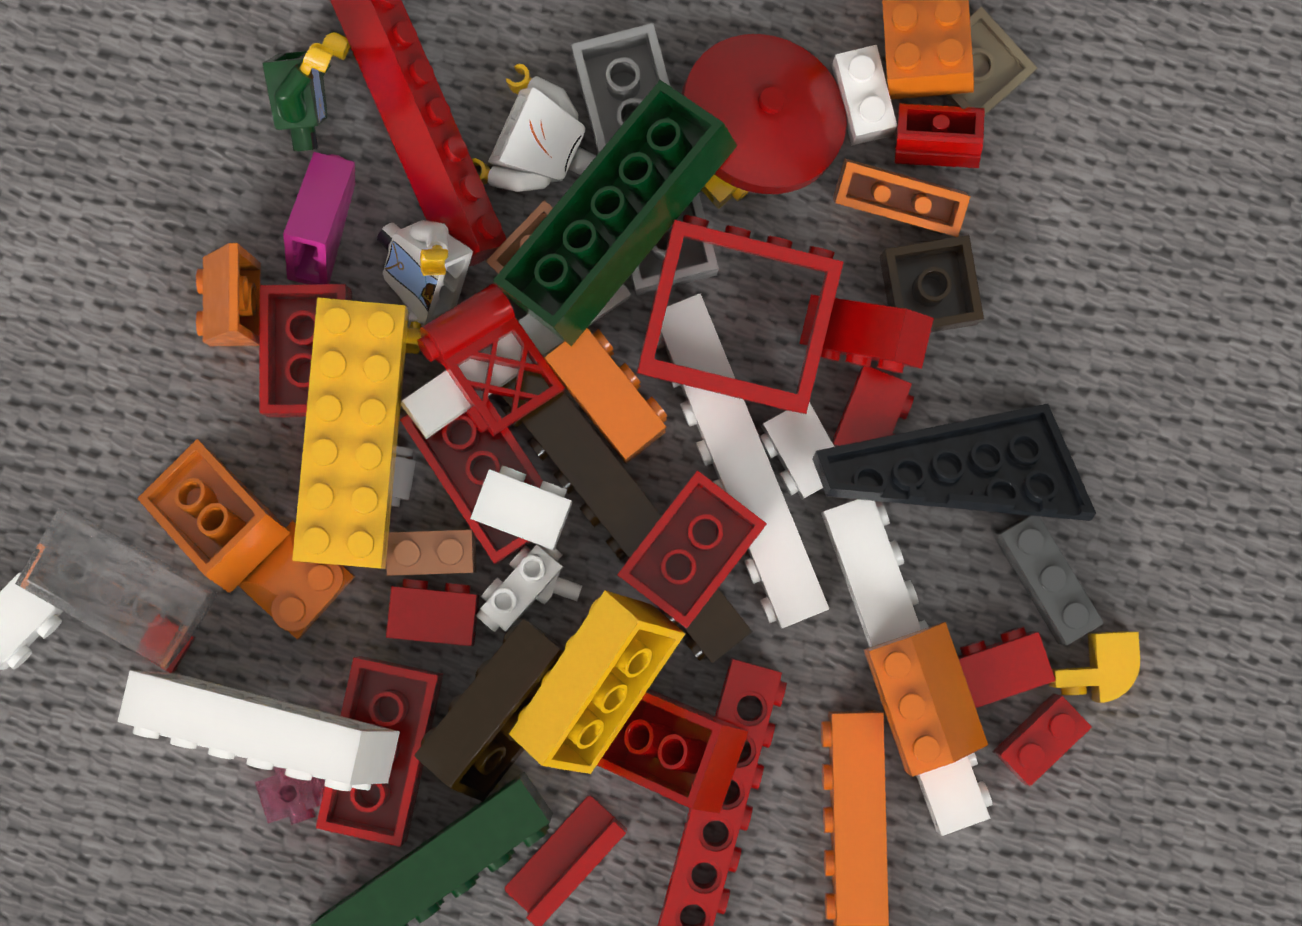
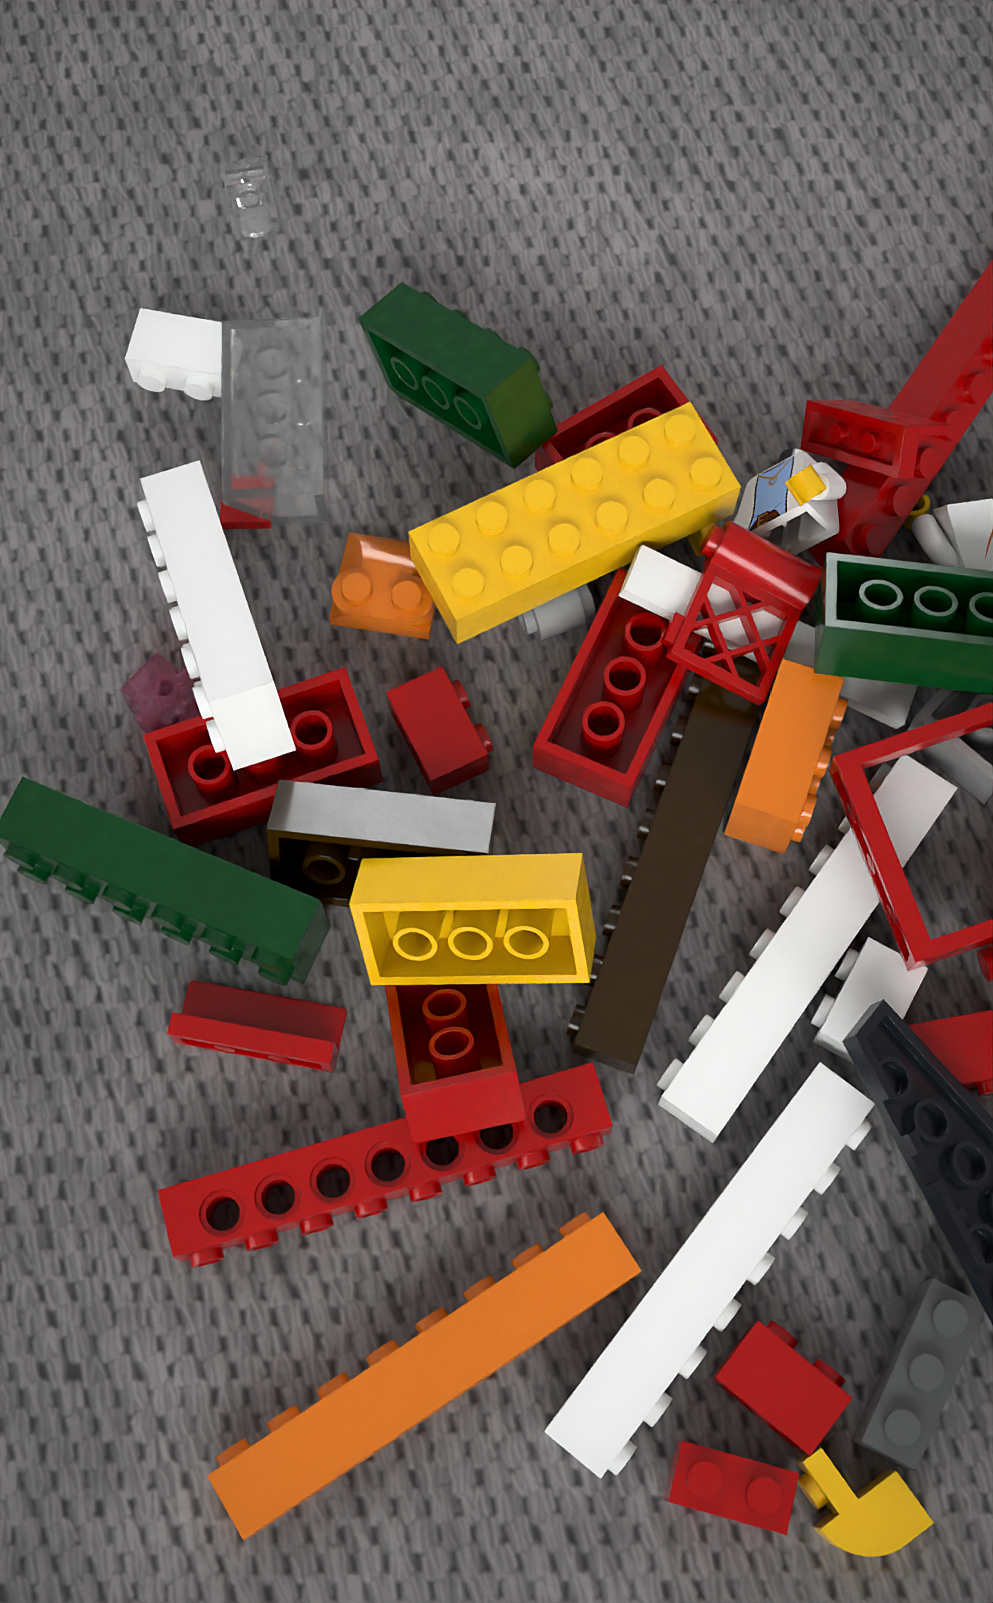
camera: 65 degrees right, 15 degrees down
(175, 437) = (460, 374): none -> dark green brick
(213, 516) = (397, 472): orange slope -> none
(230, 297) = (632, 349): orange slope -> none
(298, 88) = (879, 291): dark green torso -> none
(318, 219) = (763, 387): dark pink slope -> none
(407, 173) = (866, 435): none -> red panel
(431, 552) = (501, 688): nougat brick -> none
(522, 508) = (610, 731): white brick -> none
(533, 579) = (536, 802): white brick -> none
(692, 549) = (686, 932): red brick -> none
(926, 699) = (693, 1306): orange slope -> none

